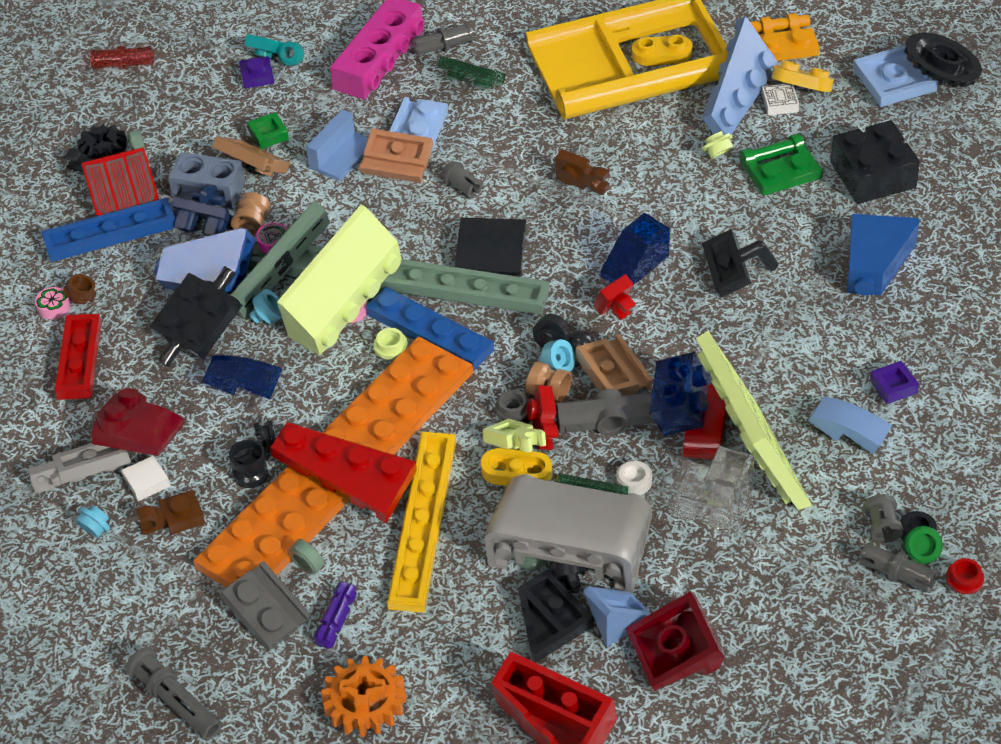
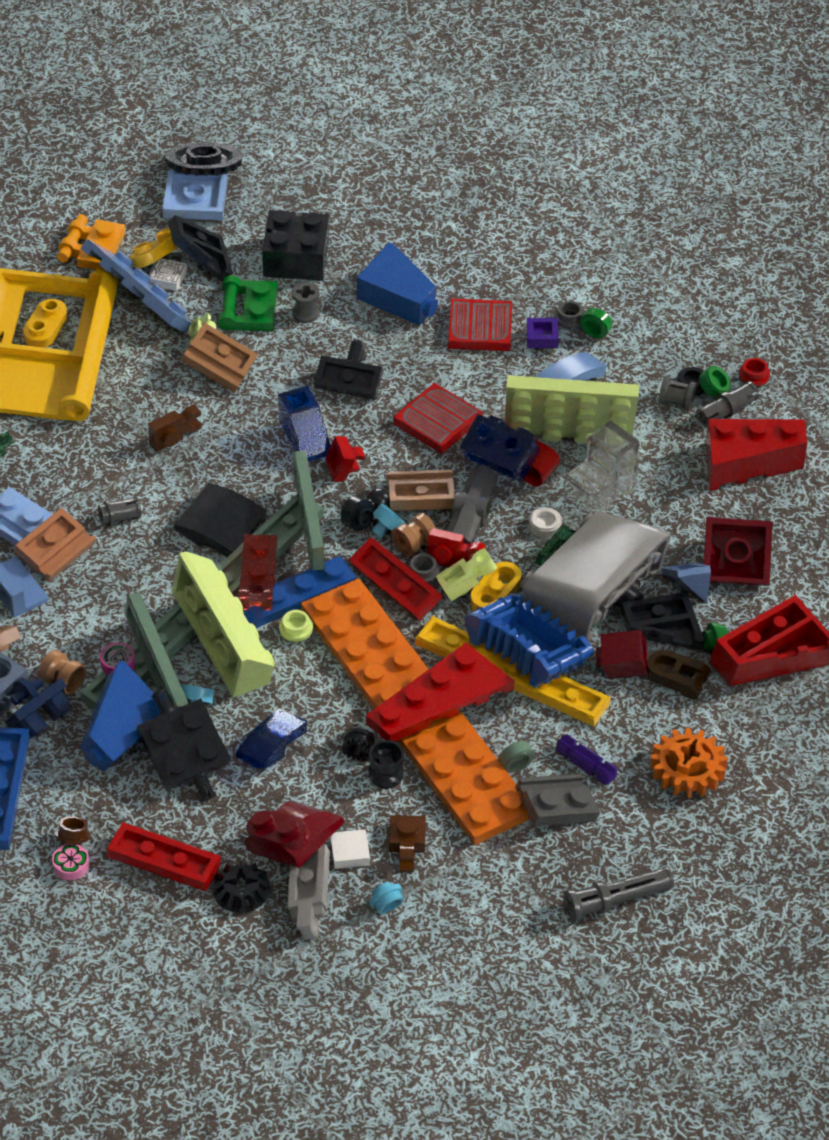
camera: 70 degrees left, 0 degrees up
(62, 430) = (227, 893): none -> black gear
(426, 289) = (258, 571): none -> clear red plate
(452, 509) = (528, 638): none -> blue piece
(473, 592) = (623, 654): none -> dark red brick
(483, 389) = (395, 579): none -> red plate
(483, 637) = (666, 670): none -> dark brown plate
(516, 290) = (308, 510): none -> sand green tile
(548, 658) = (711, 634): none -> green plate
(687, 167) = (219, 357): none -> medium nougat plate
(736, 339) = (436, 418): none -> red tile
(804, 197) = (305, 302): none -> dark grey bush
(820, 100) = (201, 245): none -> black wing
(835, 605) = (753, 448): none -> red wedge
(876, 334) = (480, 324): none -> red tile
(935, 389) = (569, 314): none -> dark grey plate
(937, 417) = (596, 323): none -> green tile

